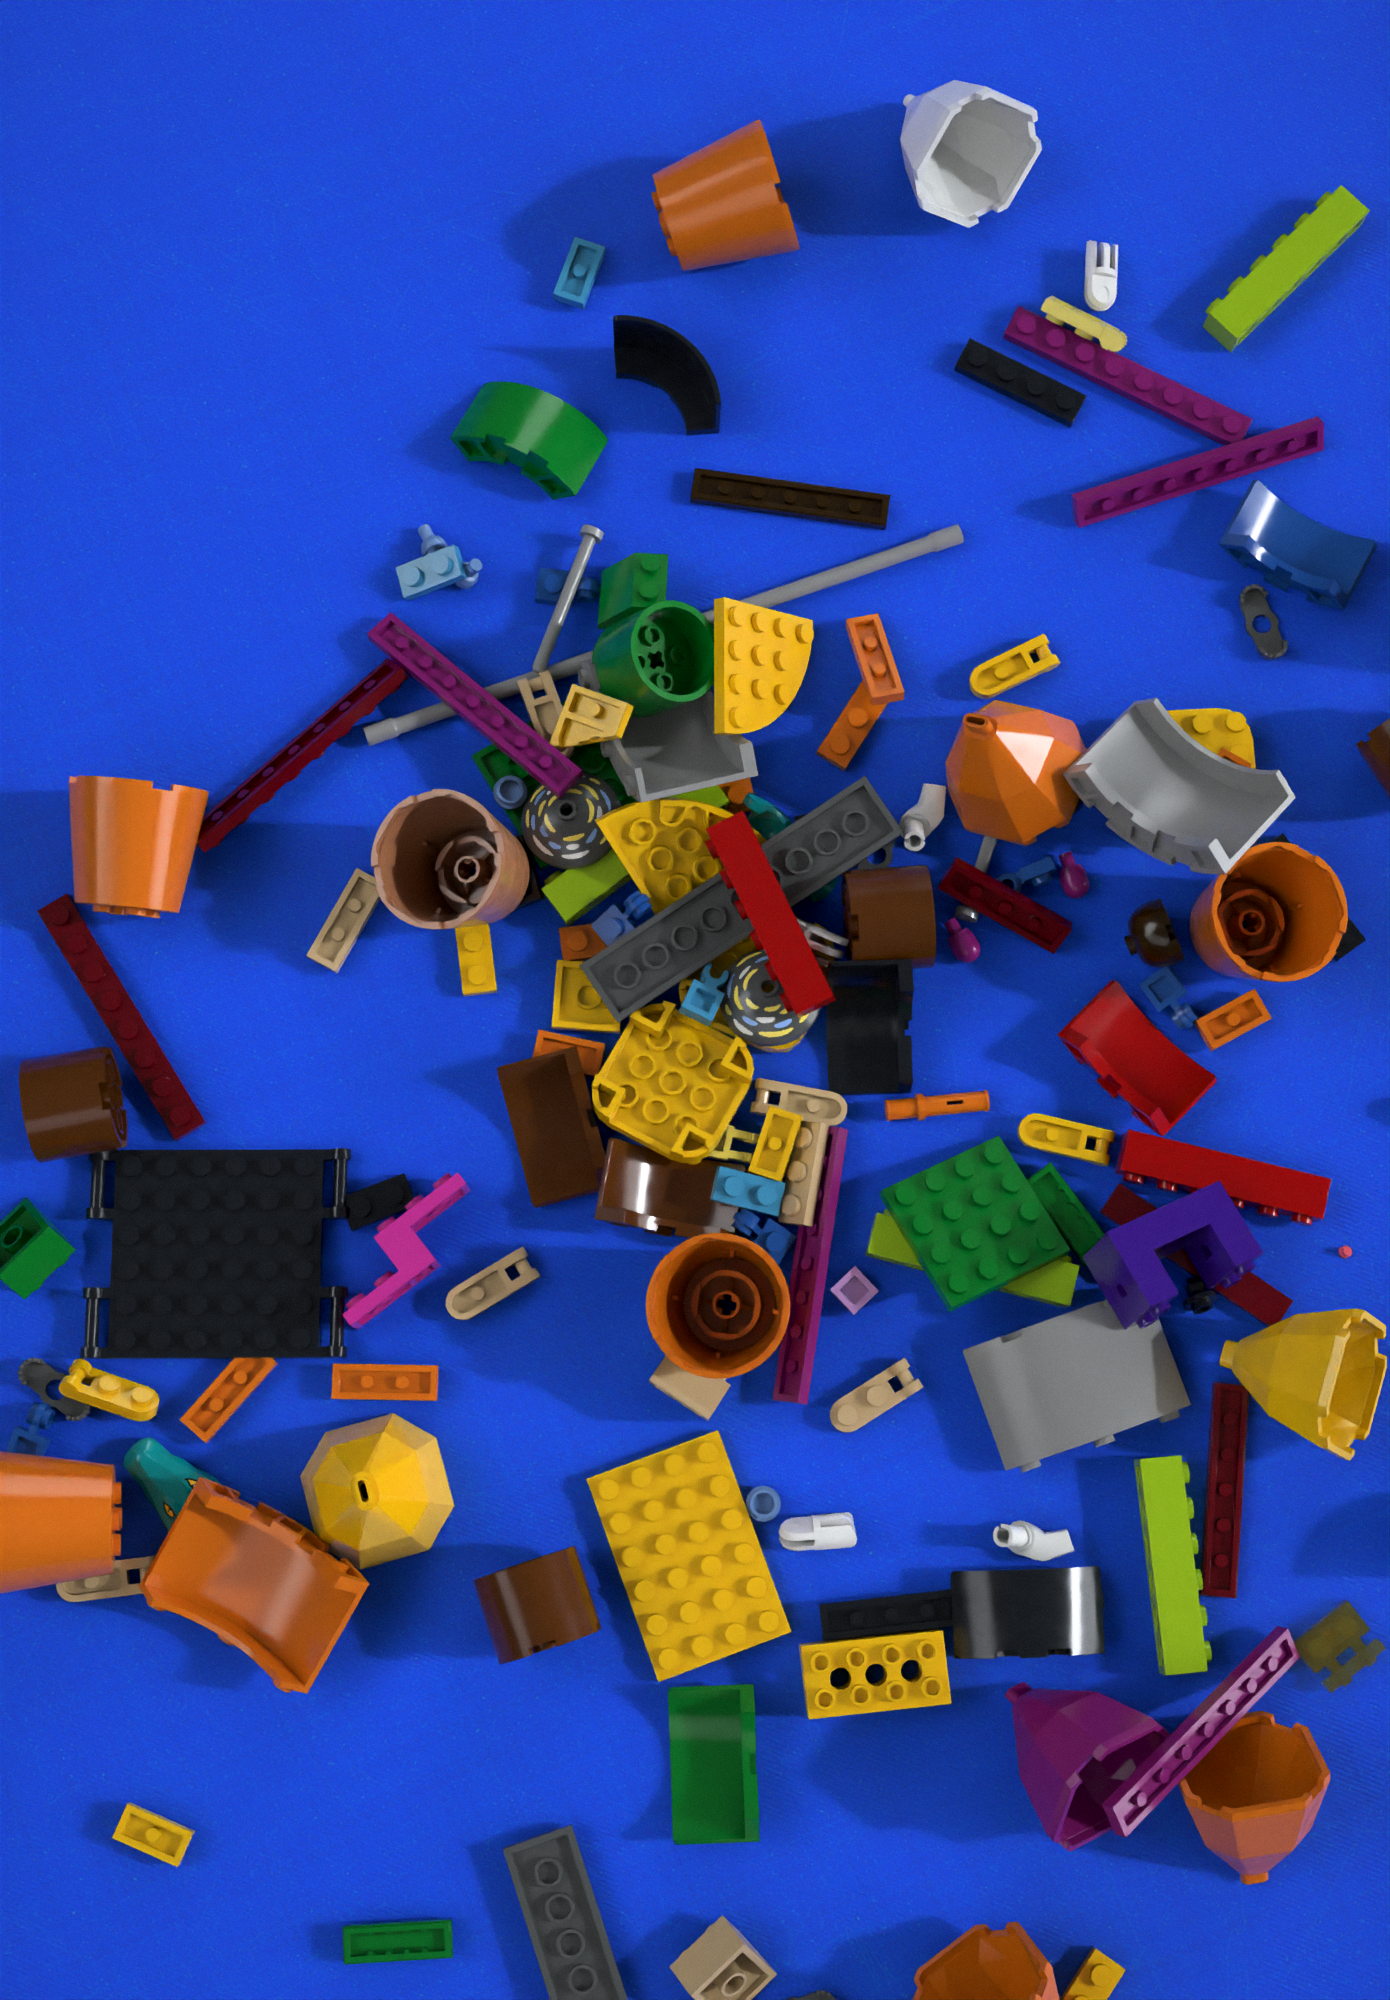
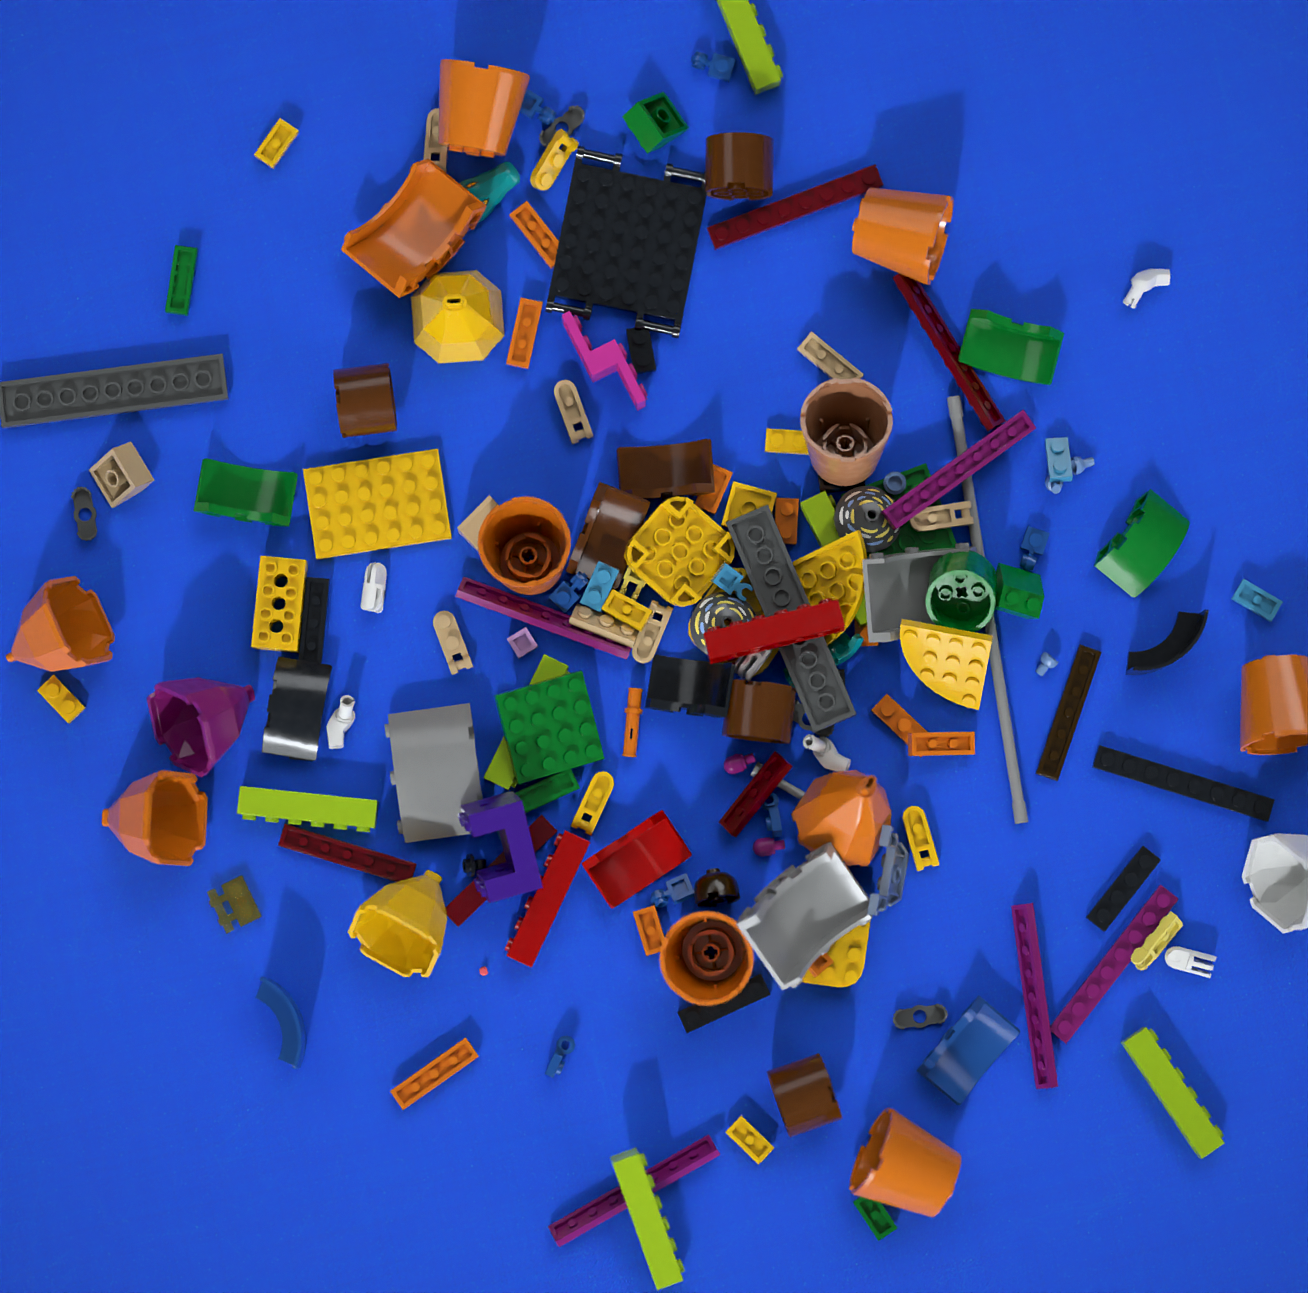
camera: 100 degrees right, 5 degrees up
(151, 499) = (1144, 282): none -> white arm
(281, 665) = (1010, 349): none -> green panel
(590, 536) = (1022, 545): light grey bar -> none
(590, 719) = (930, 541): yellow wing -> none
(618, 921) = (794, 538): blue plate -> none
(724, 538) = (1047, 662): none -> medium blue piece
(763, 1503) = (399, 557): medium blue plate -> none
(856, 330) = (1183, 783): none -> black plate
(1092, 691) = (893, 874): none -> sand blue wing
(1200, 1732) = (202, 796): magenta plate -> none

